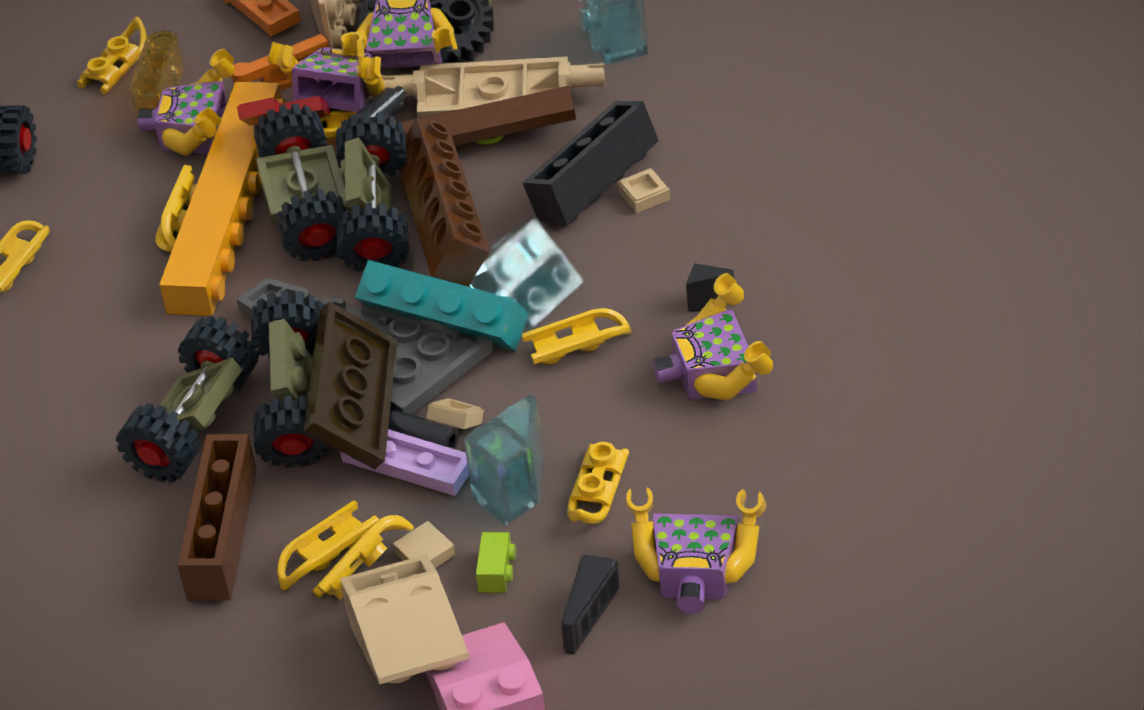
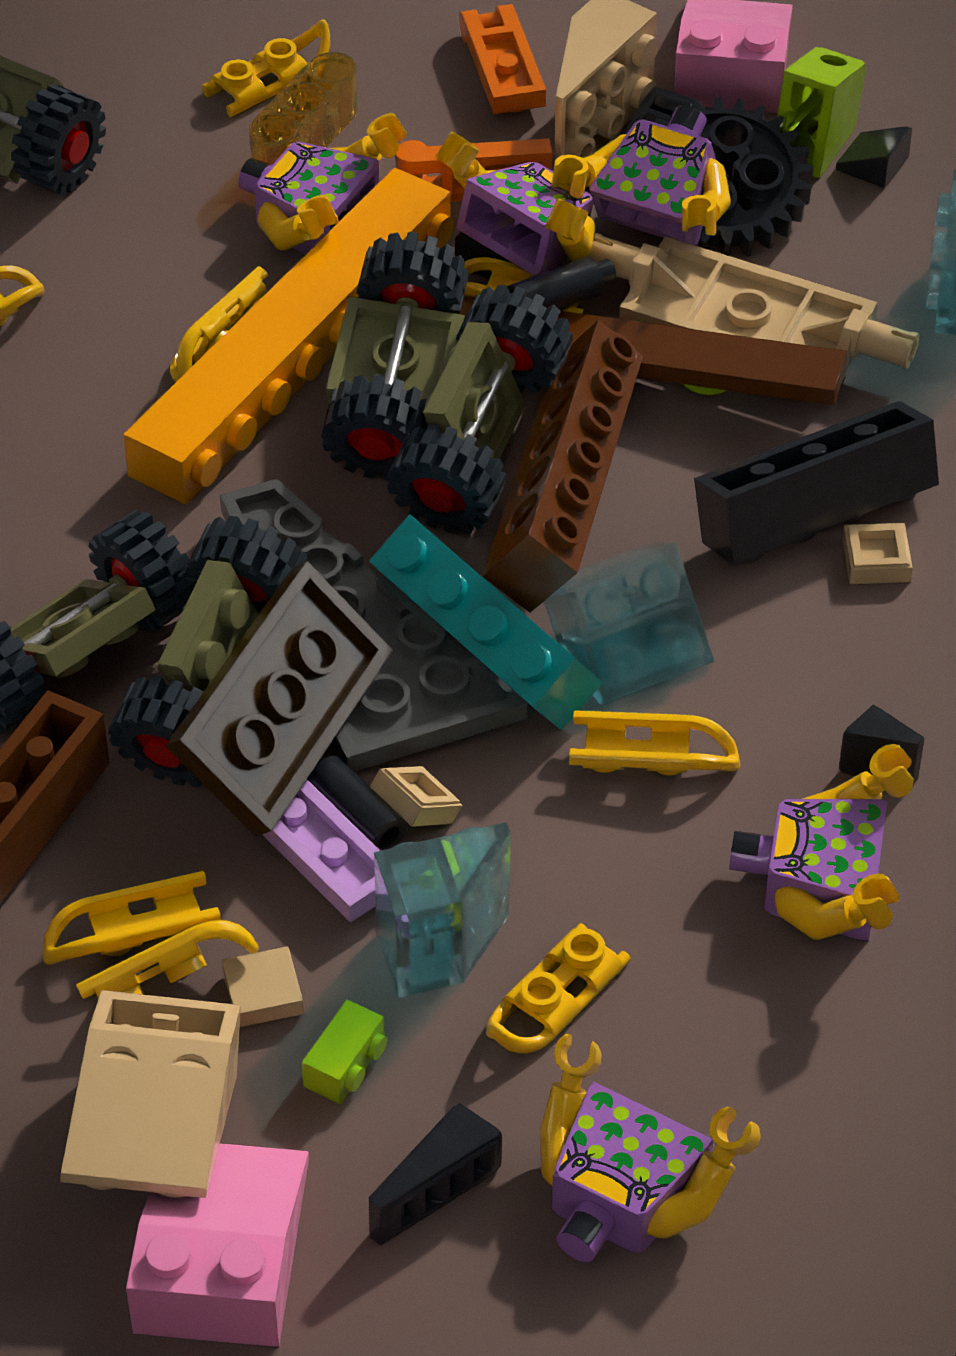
camera: 20 degrees right, 5 degrees up
(252, 111) = (472, 247): red tile -> none

